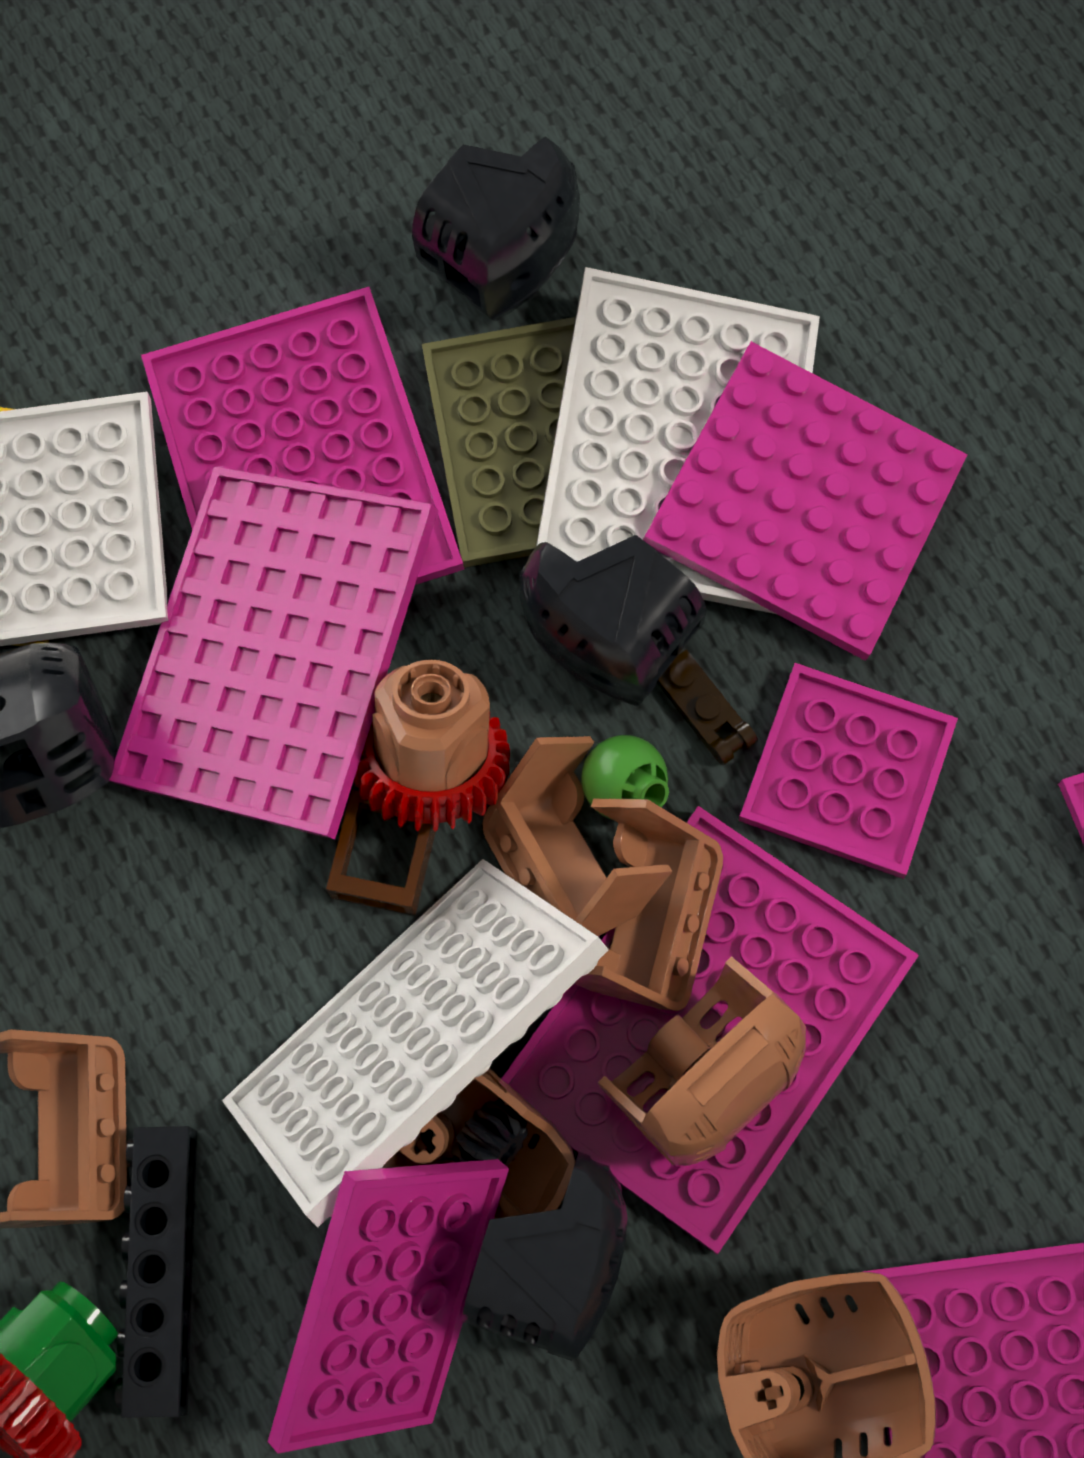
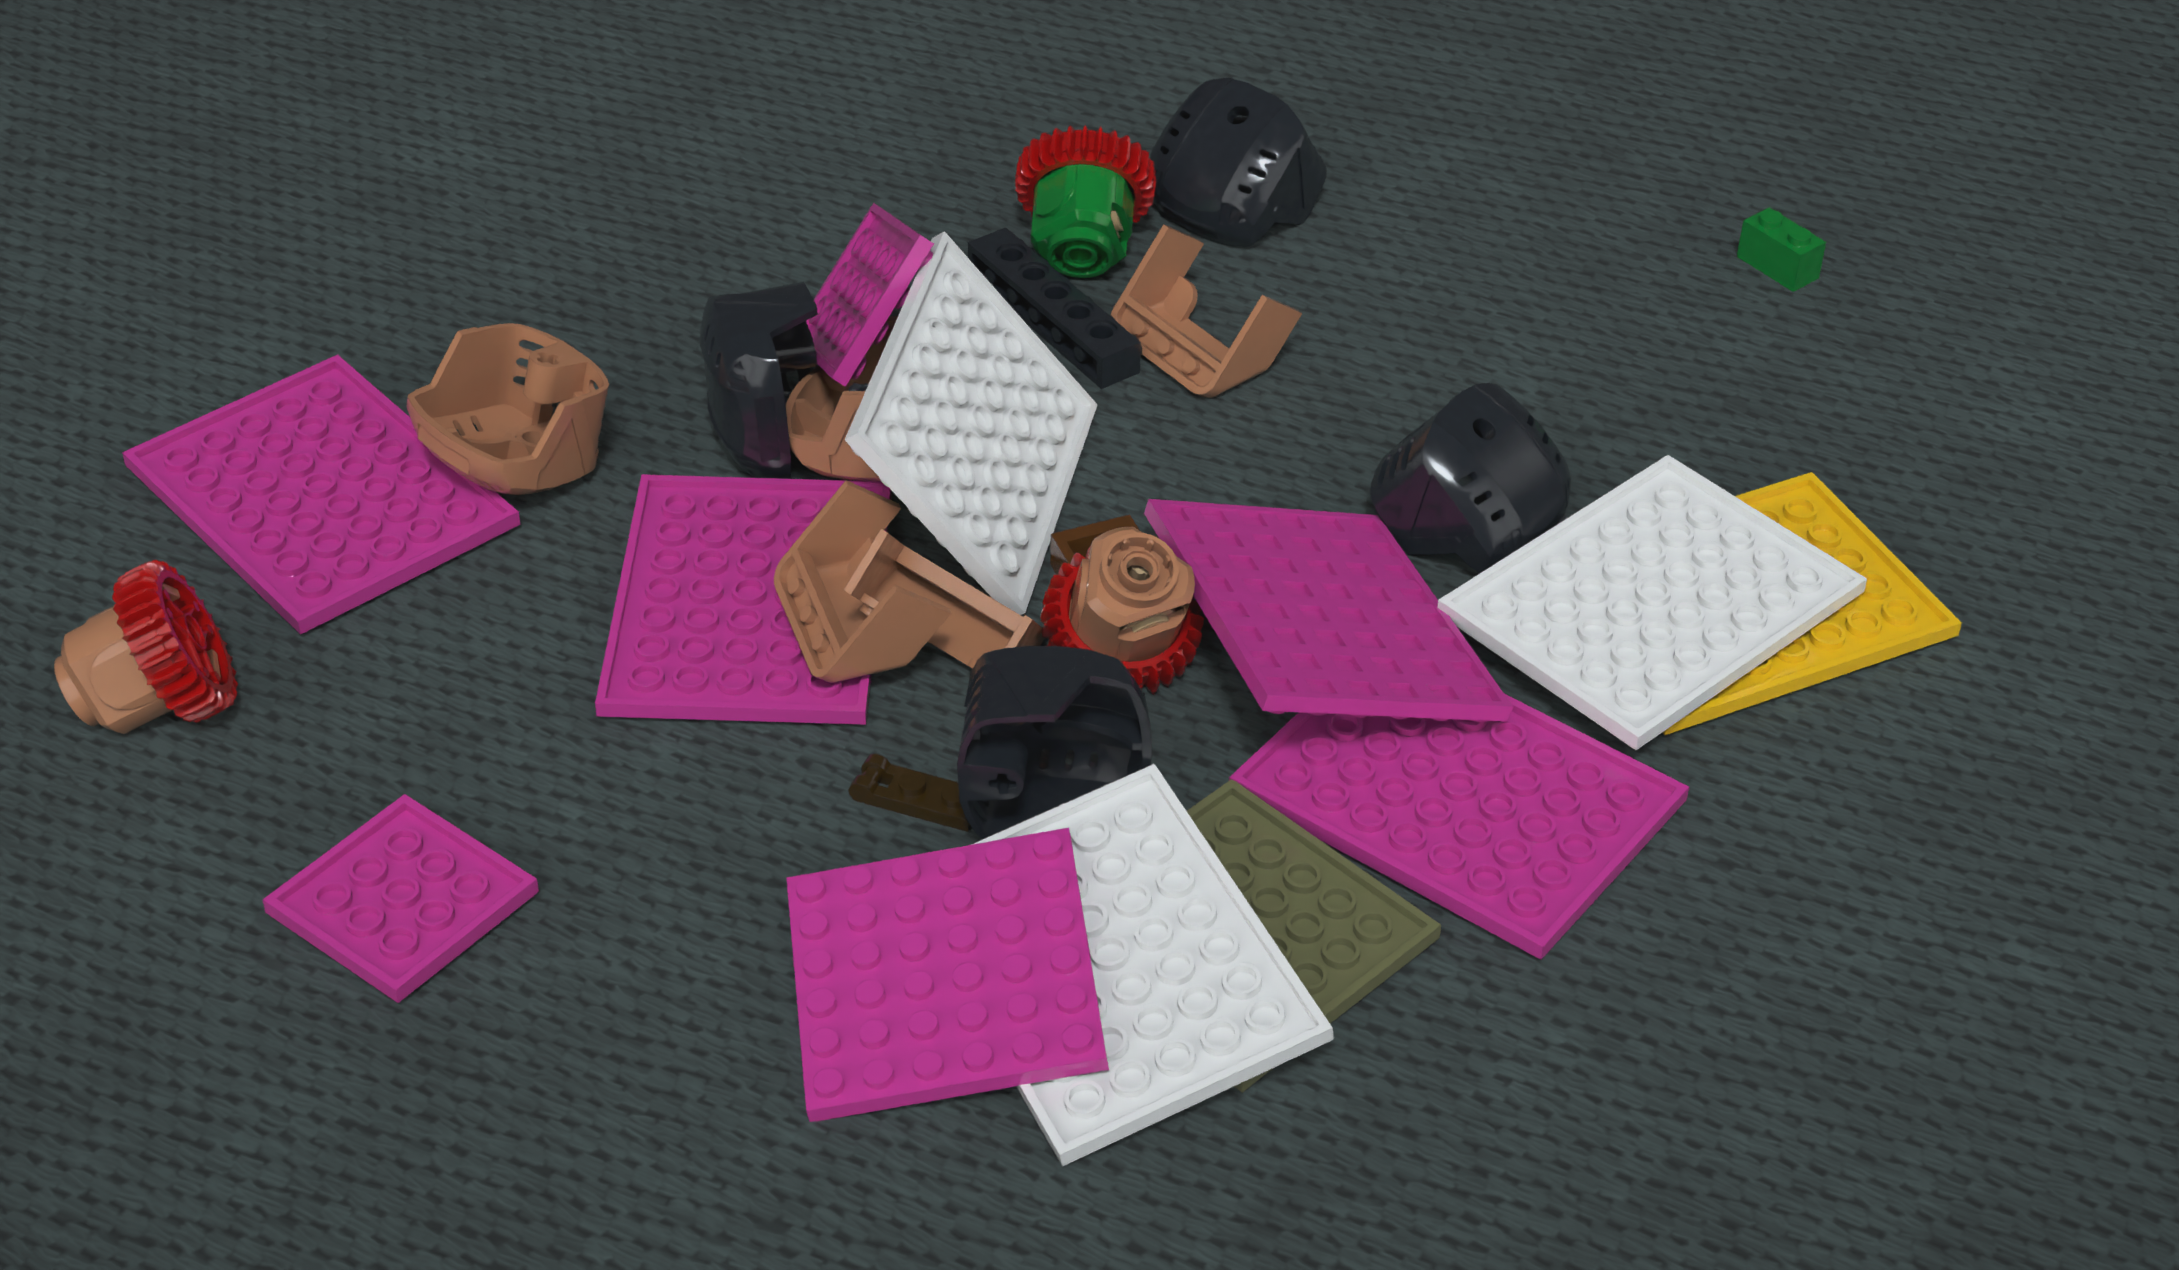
camera: 140 degrees right, 30 degrees down
(482, 221) = (1417, 1033): black piece -> none
(625, 770) = (935, 681): bright green brick -> none
(709, 1083) = (706, 465): nougat piece -> none
(849, 770) = (748, 806): dark pink plate -> none

